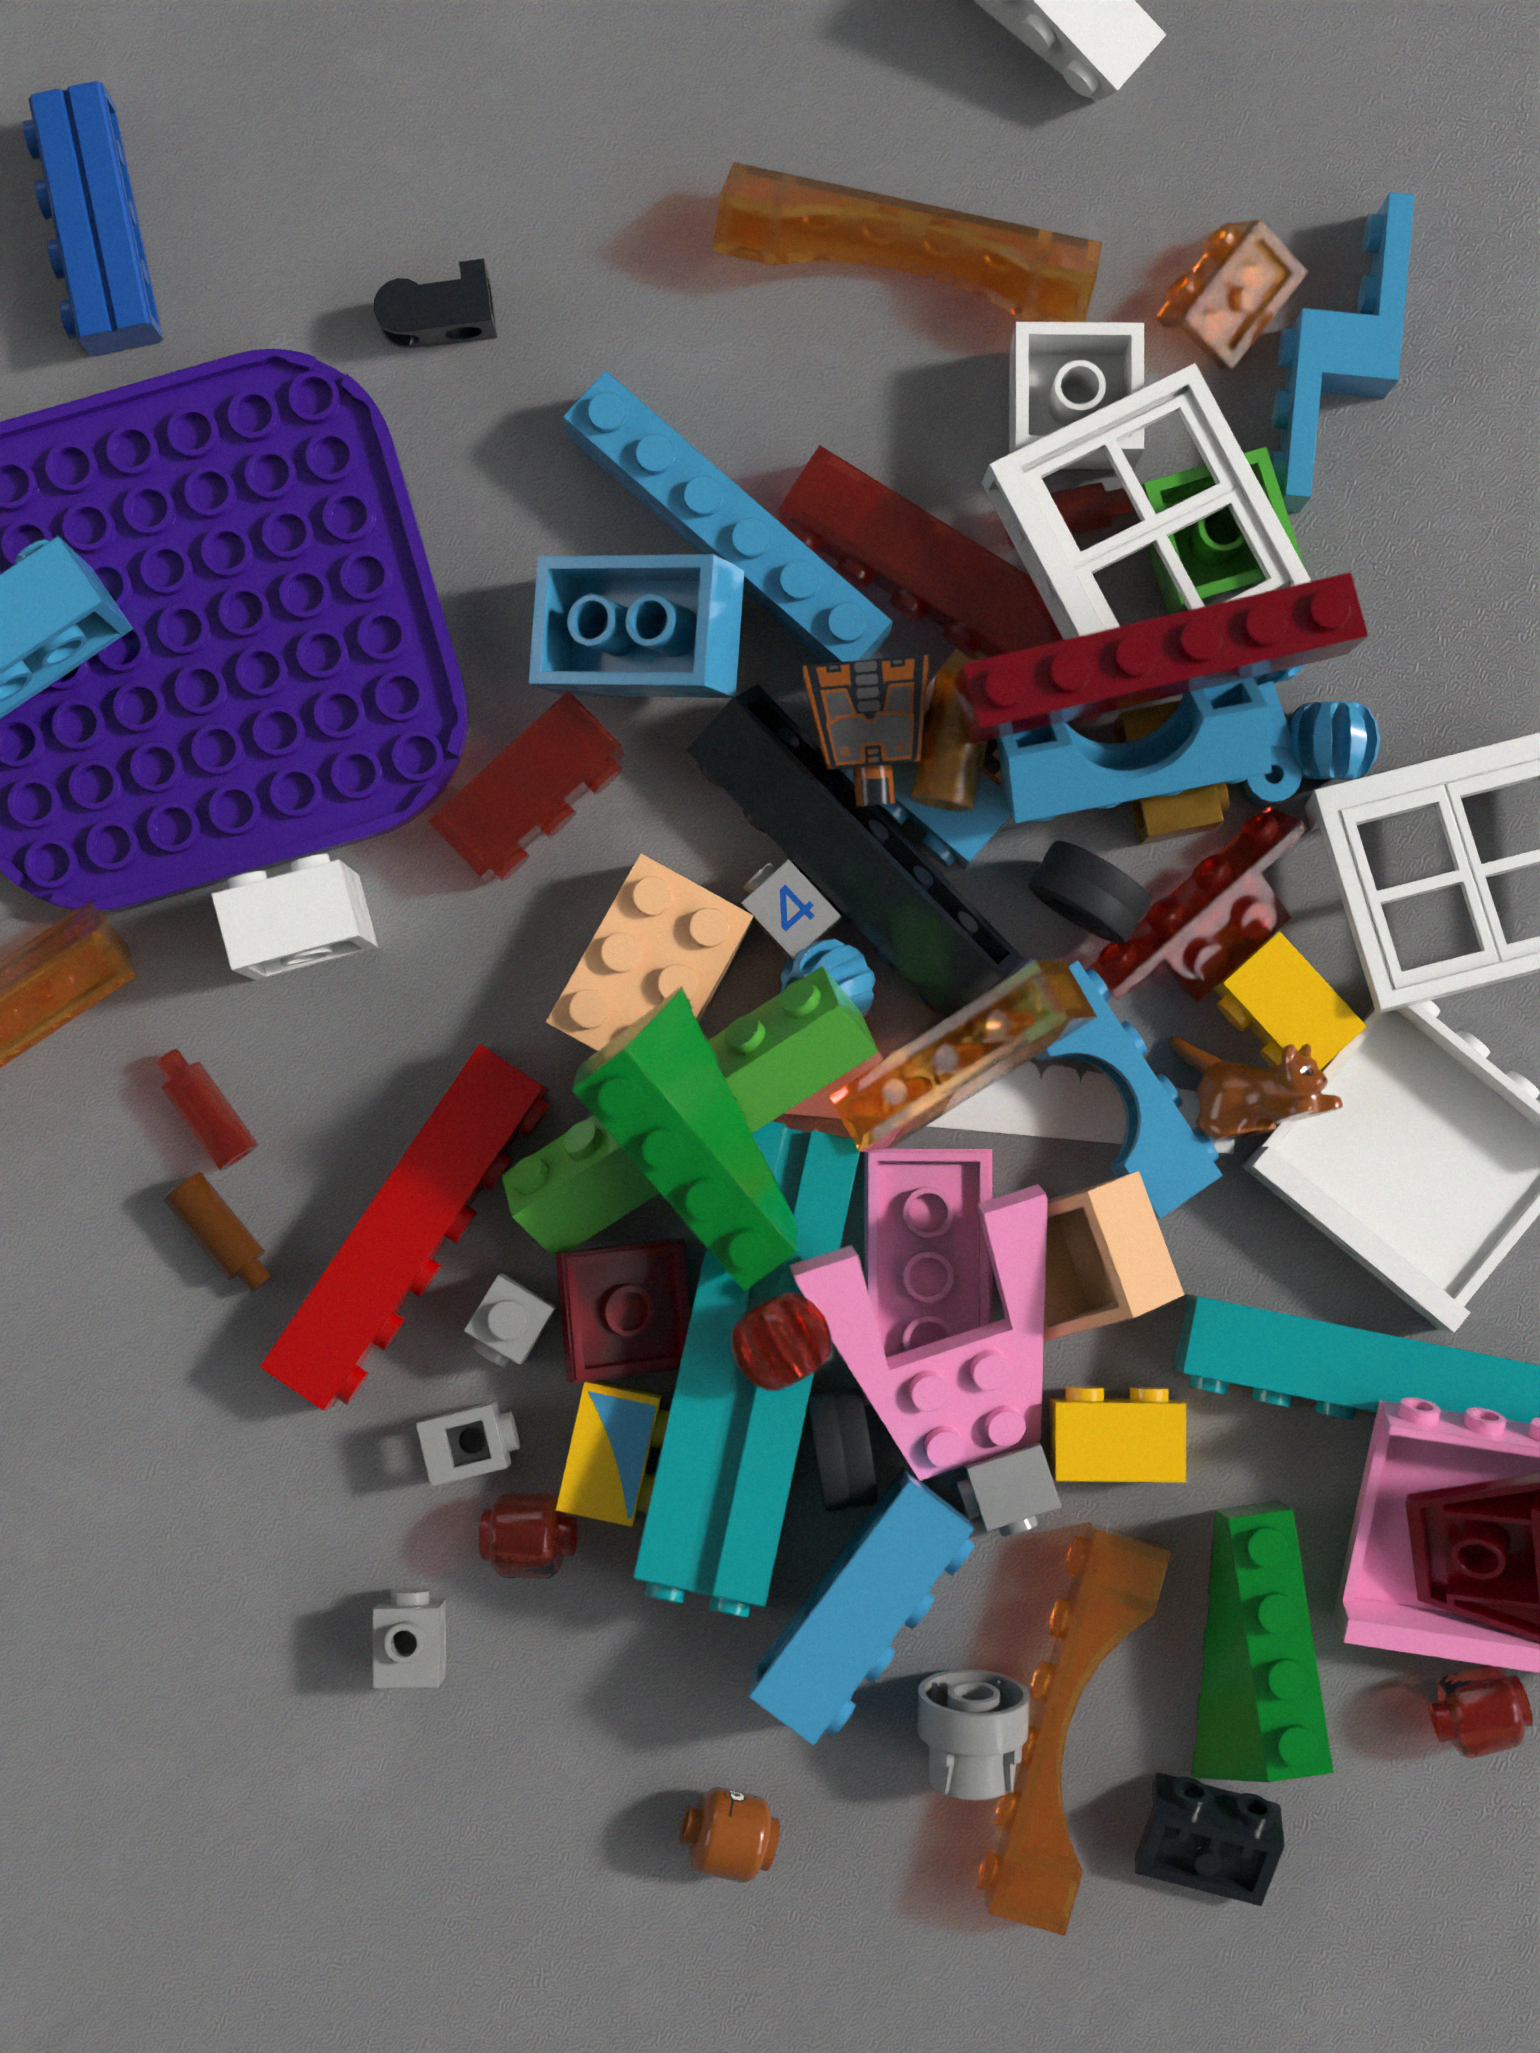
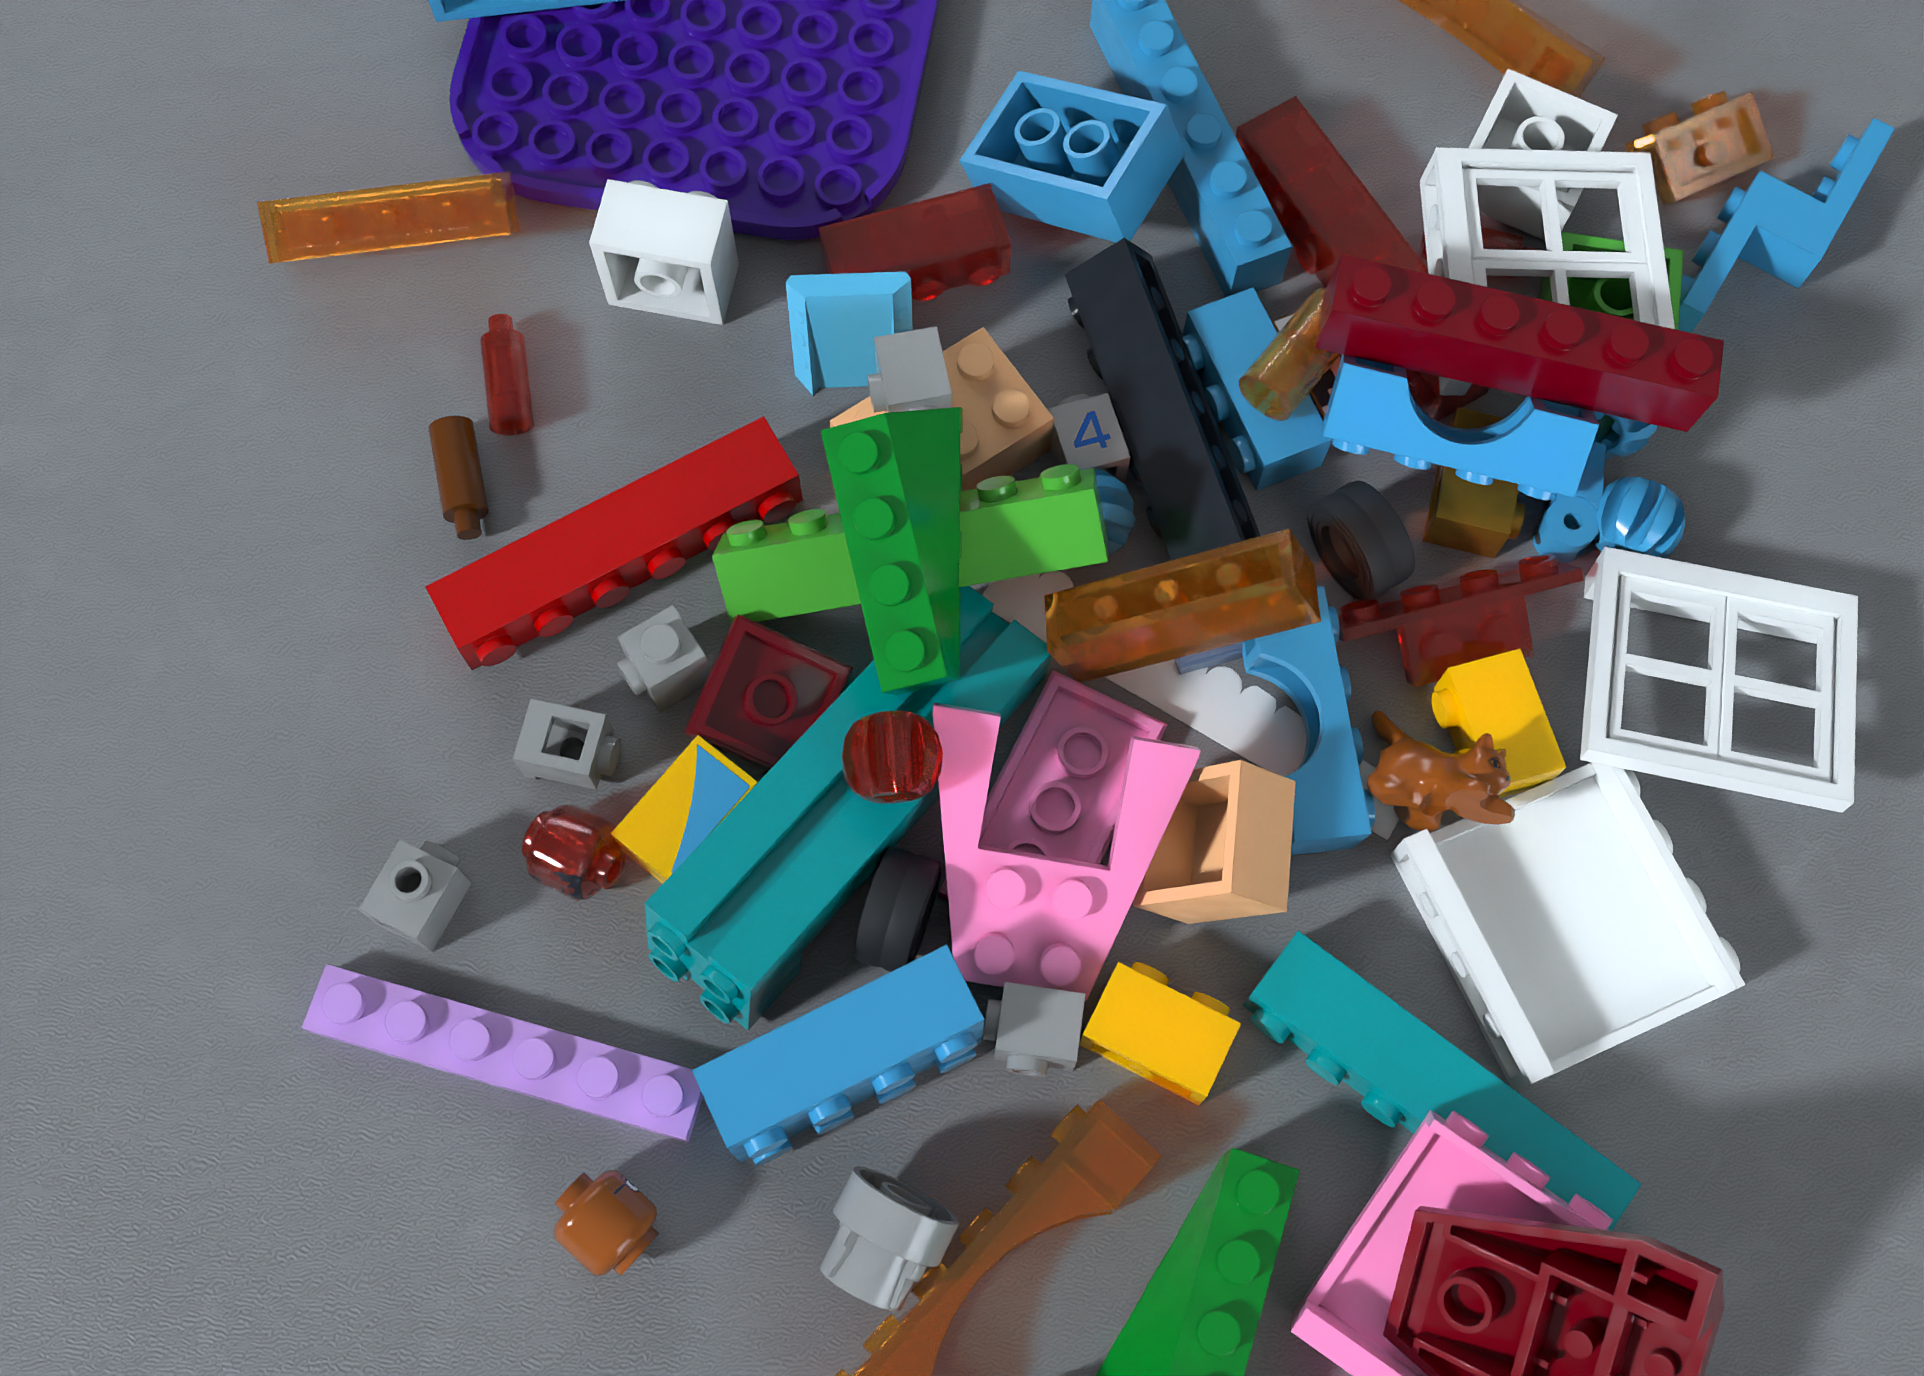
camera: 25 degrees right, 15 degrees down
(515, 914) = (837, 321): none -> medium azure slope
(561, 1732) = (505, 1052): none -> lavender plate
(611, 962) = (909, 372): none -> light grey brick
(868, 718) = (1235, 299): torso -> none

